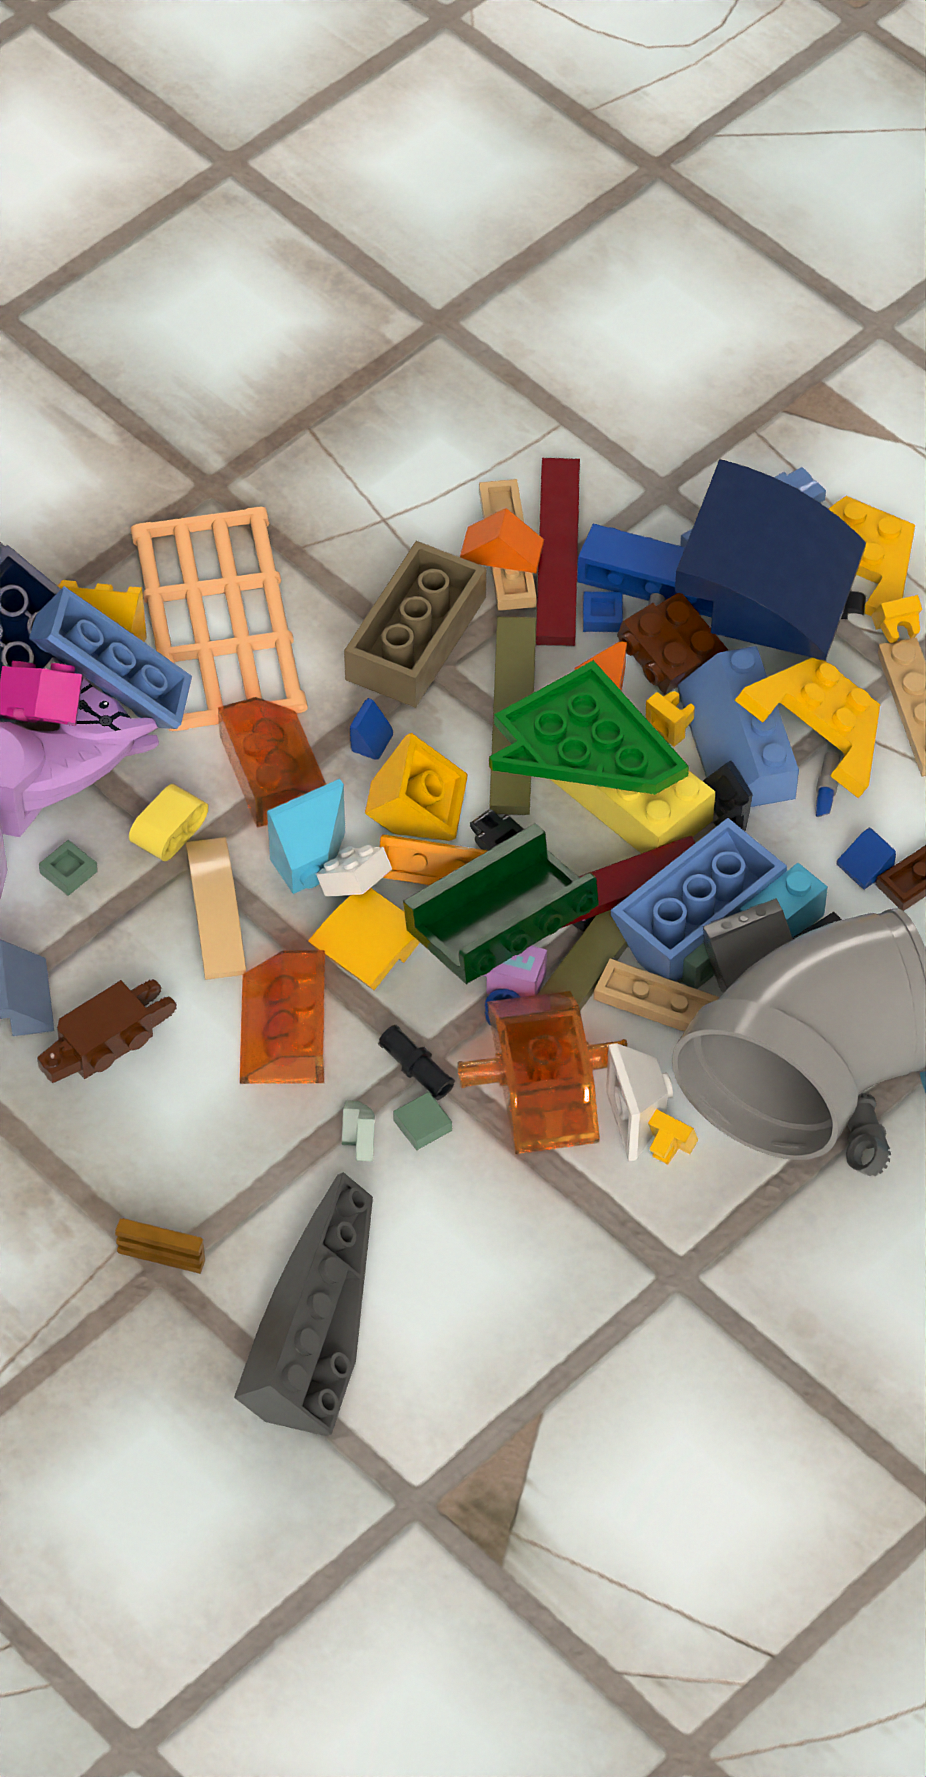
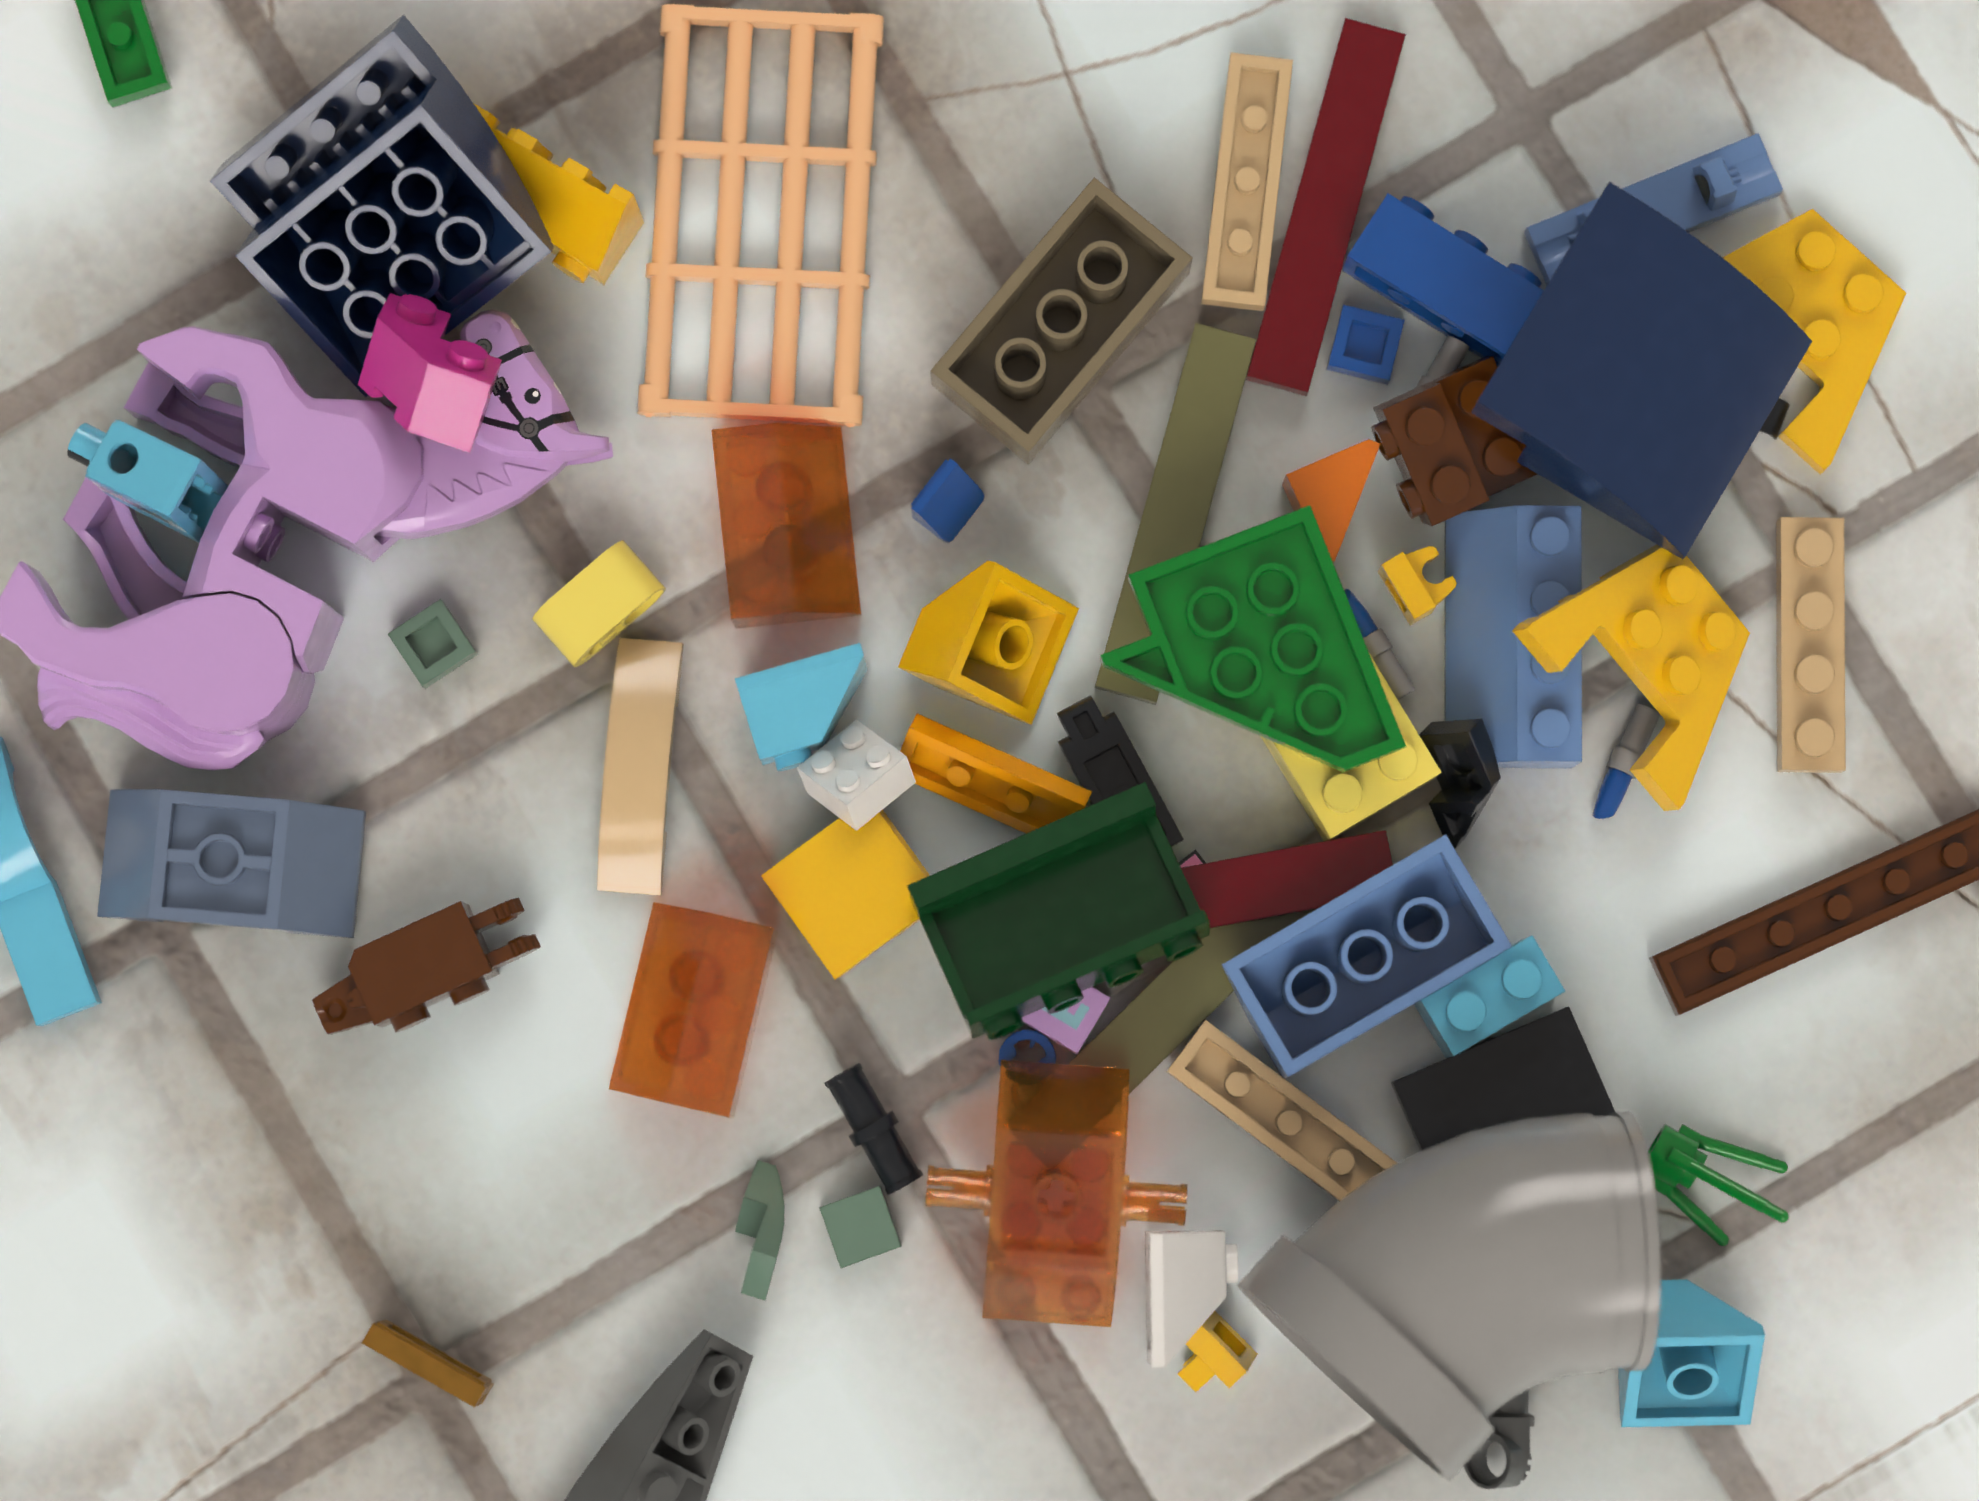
camera: 15 degrees right, 30 degrees up
(112, 658) = (551, 340): medium blue slope -> none
(503, 543) = (1234, 199): orange slope -> none
(697, 968) = (1345, 1058): sand green tile -> none
(744, 939) = (1416, 1085): dark grey slope -> none
(867, 858) = (1645, 920): blue slope -> none
(898, 613) = (1824, 480): yellow tile -> none

